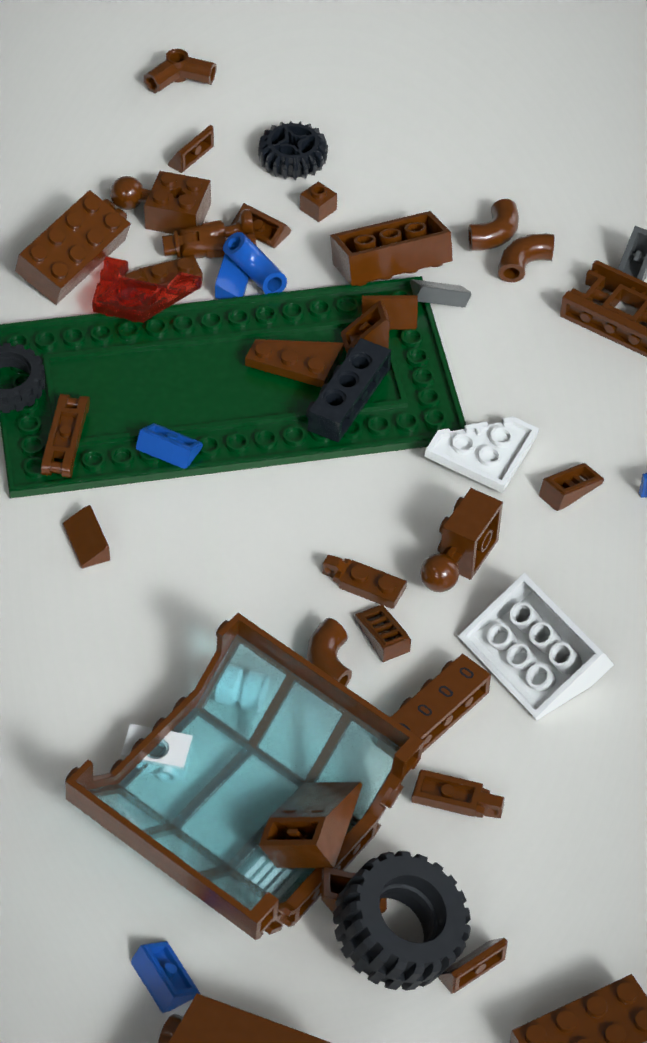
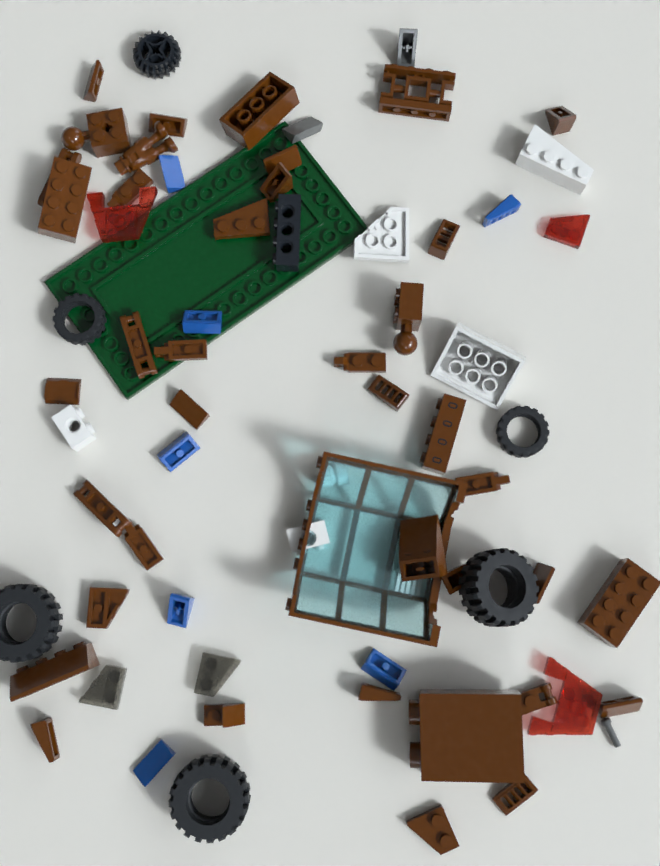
camera: 25 degrees left, 30 degrees up
(39, 581) = (178, 451): none -> blue slope
(120, 463) = (183, 350): none -> reddish brown hinge
(131, 994) = (374, 693): none -> reddish brown slope
(179, 68) = (48, 17): reddish brown piece -> none
(255, 263) = (183, 160): blue cylinder -> none
(318, 201) = (193, 89): reddish brown plate -> none
(324, 647) = (366, 429): reddish brown cylinder -> none
(498, 231) = (314, 64): reddish brown cylinder -> none
(523, 251) = (336, 75): reddish brown cylinder -> none
(550, 783) = (536, 418): none -> black tyre

